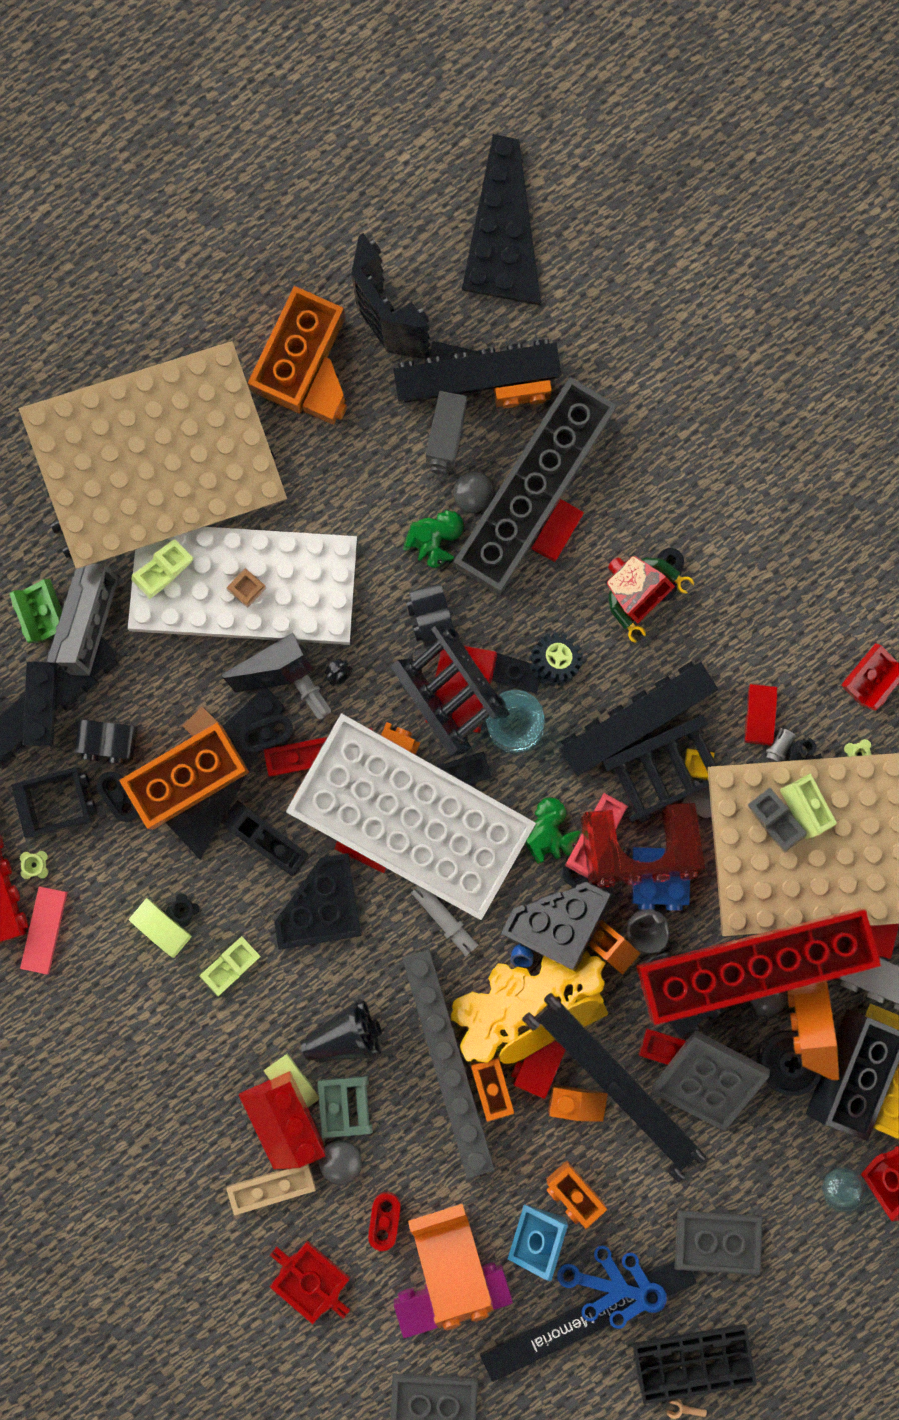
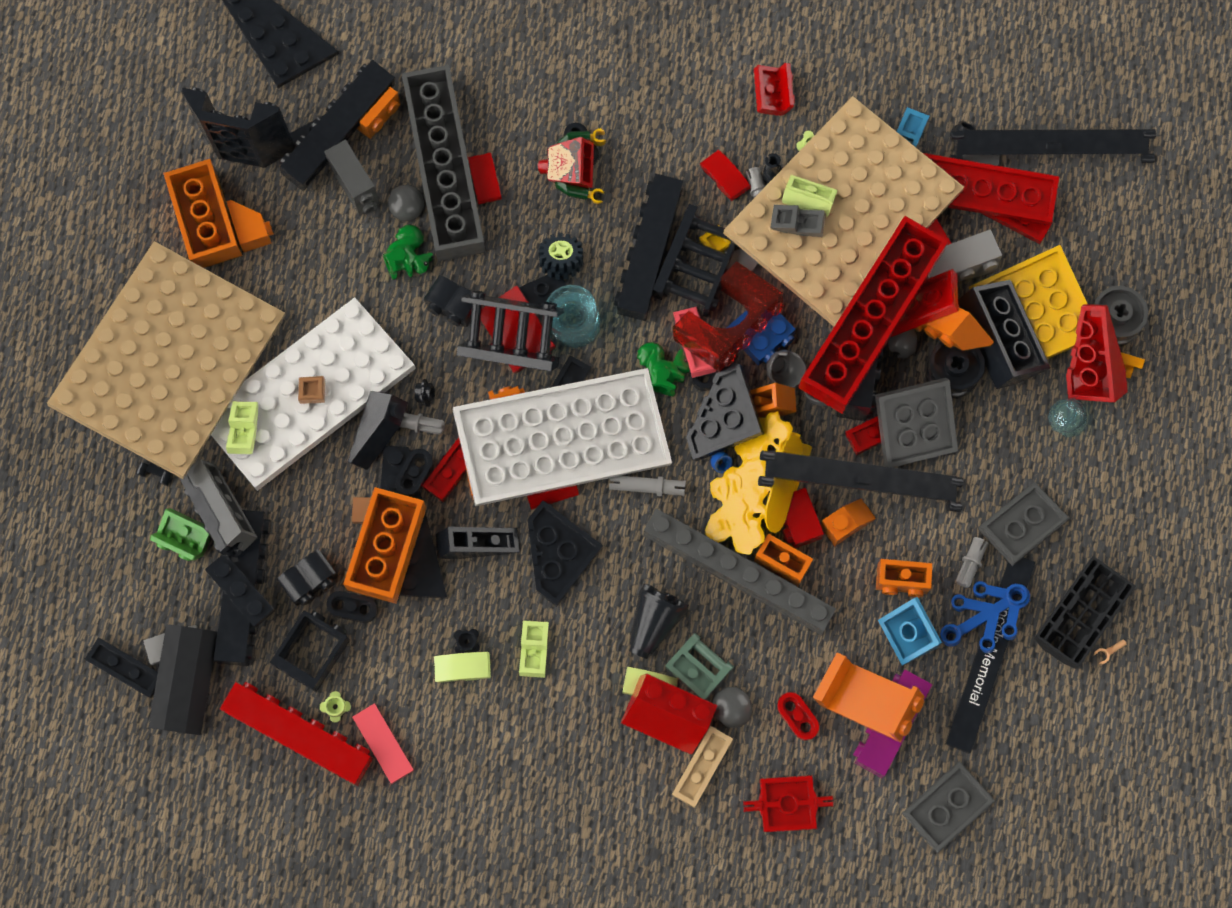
camera: 45 degrees left, 10 degrees down
(645, 1232) = (972, 562): none -> light grey axle
(823, 1002) = (934, 300): none -> red tile

